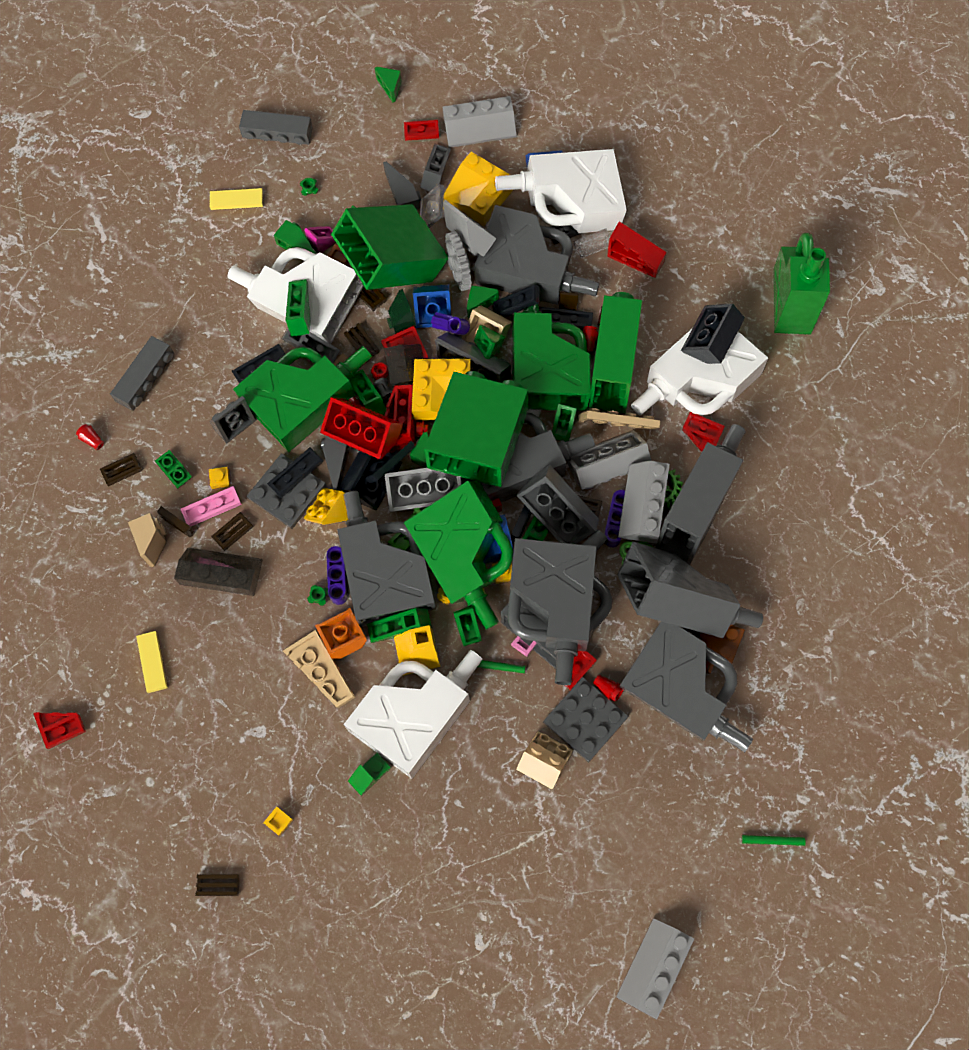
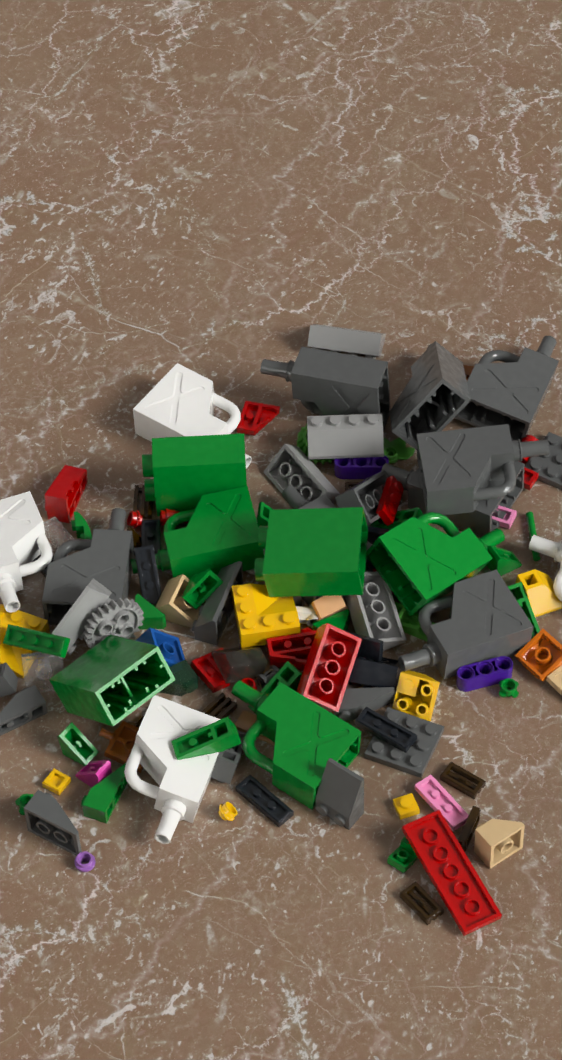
camera: 105 degrees left, 20 degrees down
(89, 436) = (392, 941): red cone -> none
(133, 494) = (451, 872): none -> red plate
(142, 373) = (303, 907): dark grey brick -> none
(218, 571) = (510, 777): clear smoke slope -> none
(236, 199) = (54, 875): light yellow tile -> none
(240, 217) = (84, 857): none -> medium lavender plate
(254, 336) = (227, 811): none -> yellow plate
(273, 197) = (51, 823): none -> dark grey slope
(325, 211) = (56, 781): none -> yellow tile
(450, 195) = (36, 641): none -> green tile
(450, 323) = (184, 627): dark purple piece -> none
(555, 528) = (390, 500): none -> red plate
(593, 306) = (134, 519): none -> red plate
(594, 261) = (81, 527): none -> green slope
(594, 414) = (260, 474): tan wing -> none
(713, 333) = (163, 400): black slope -> none
(795, 539) = (346, 340): none -> light grey slope
(800, 286) = (93, 345): green piece -> none

